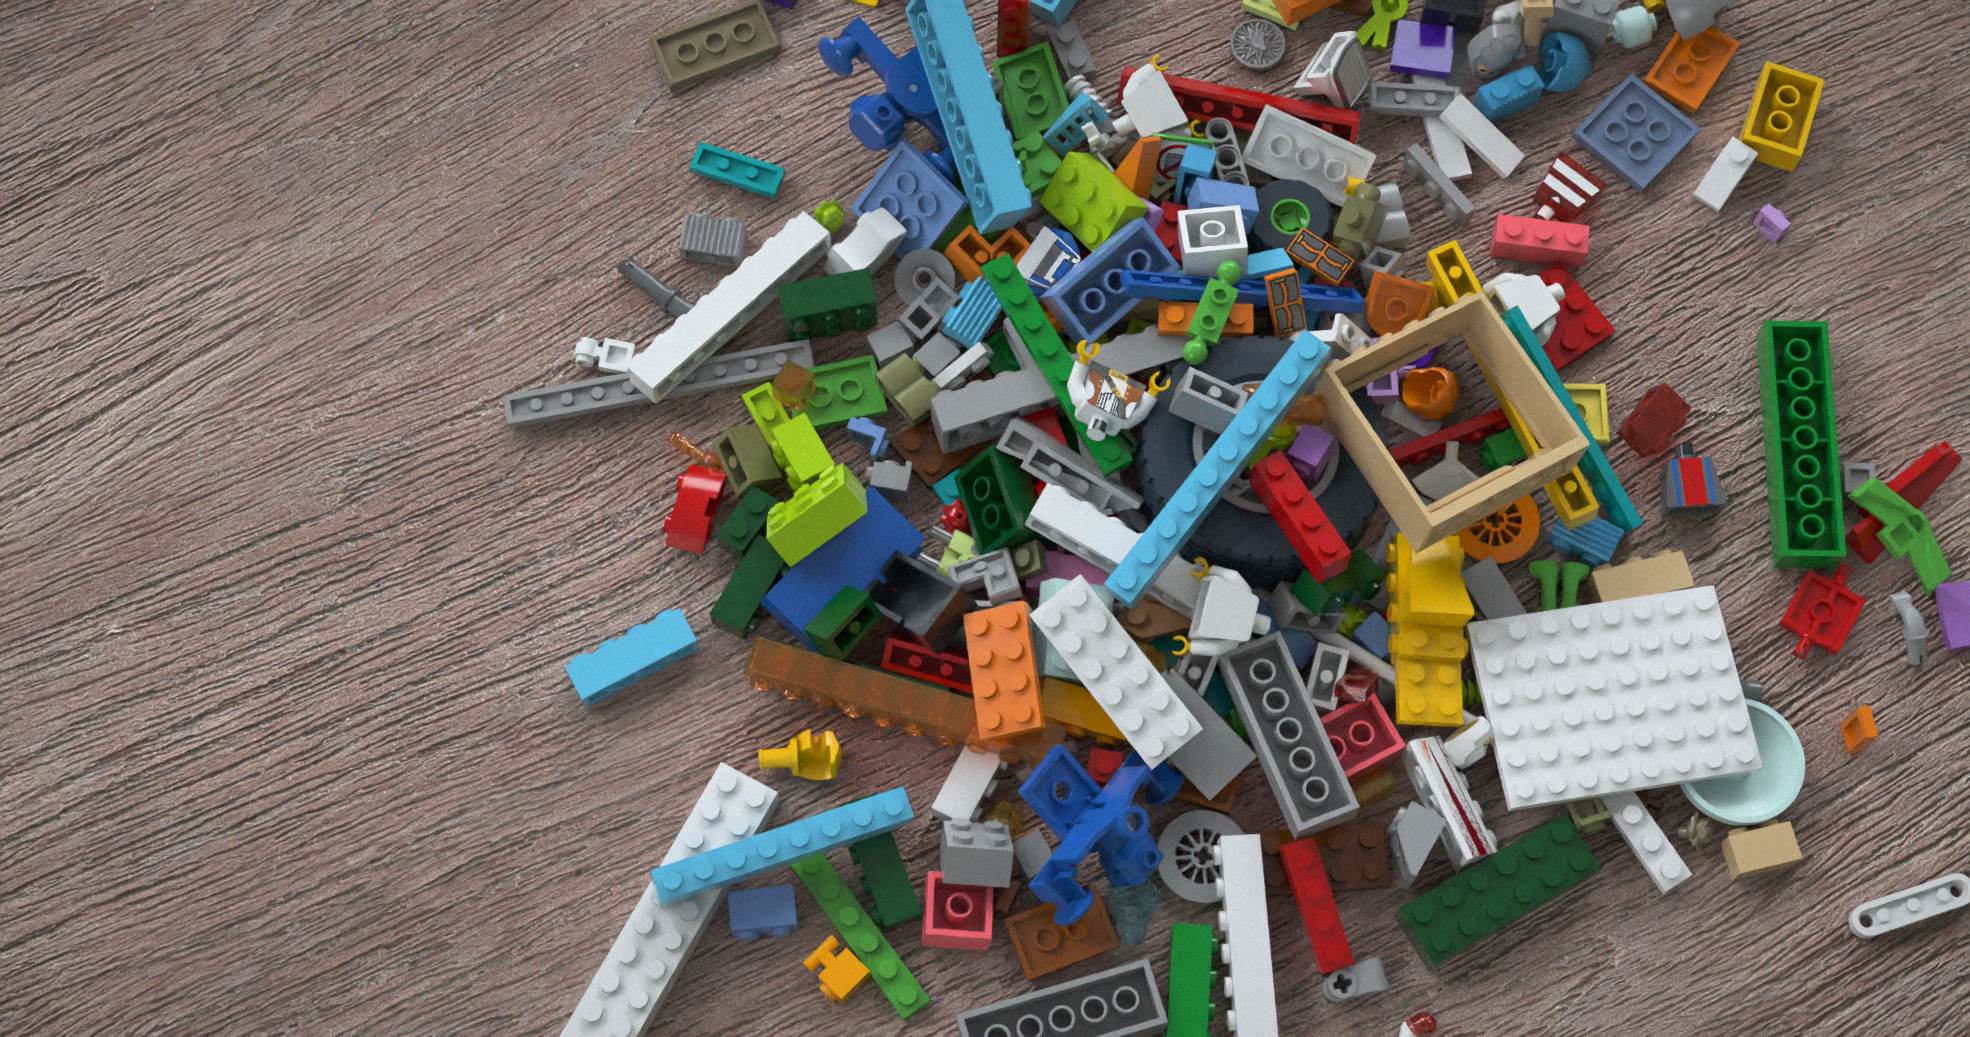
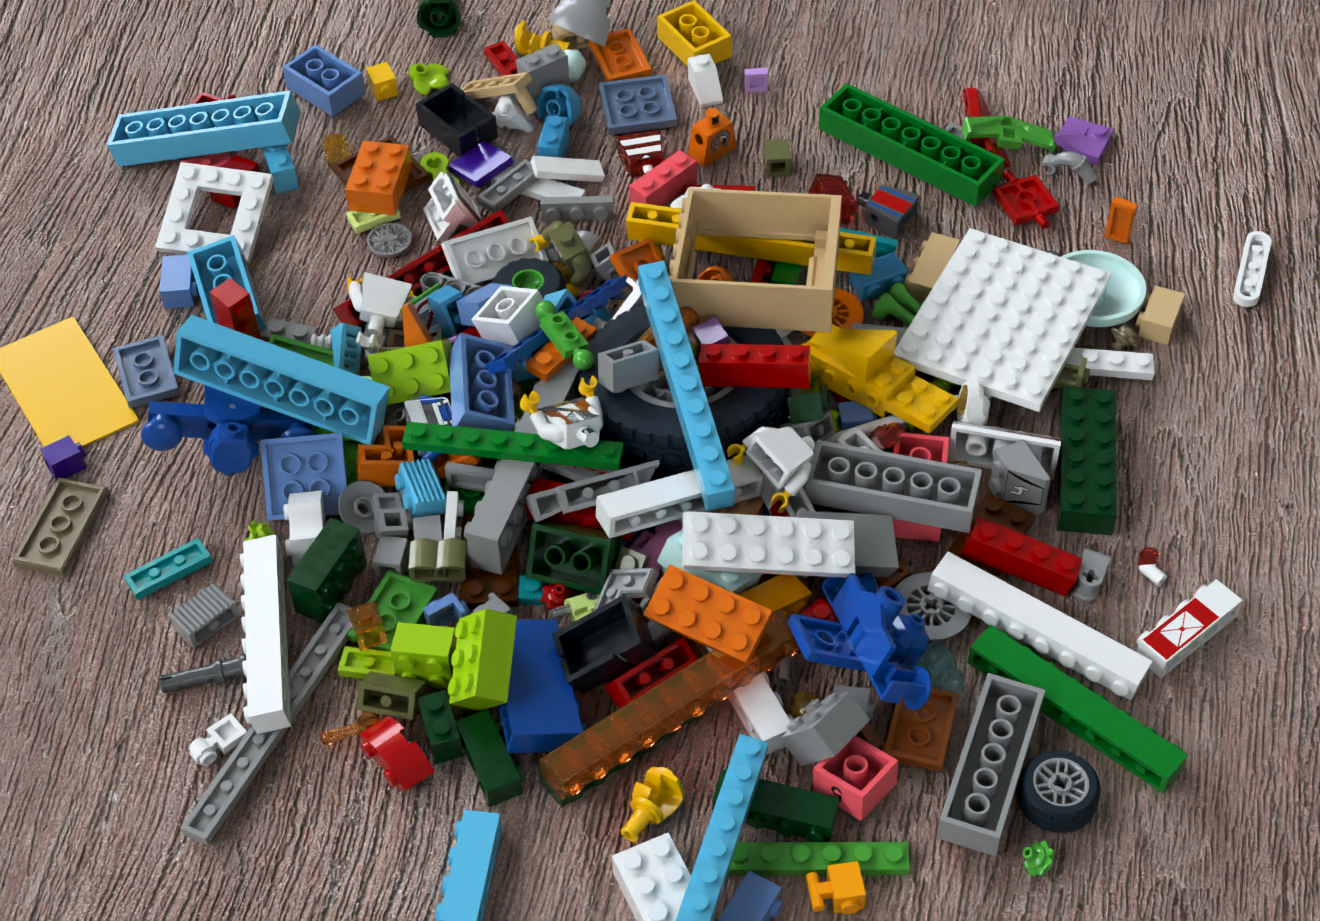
camera: 50 degrees left, 20 degrees down
(843, 622) = (579, 696): dark green brick -> none
(1285, 302) = (590, 303): tile -> none
(1319, 257) = (573, 279): tile -> none
(1494, 49) = (519, 127): light grey piece -> none
(1640, 242) = (711, 138): none -> orange torso
(1672, 324) = (777, 158): none -> olive brick

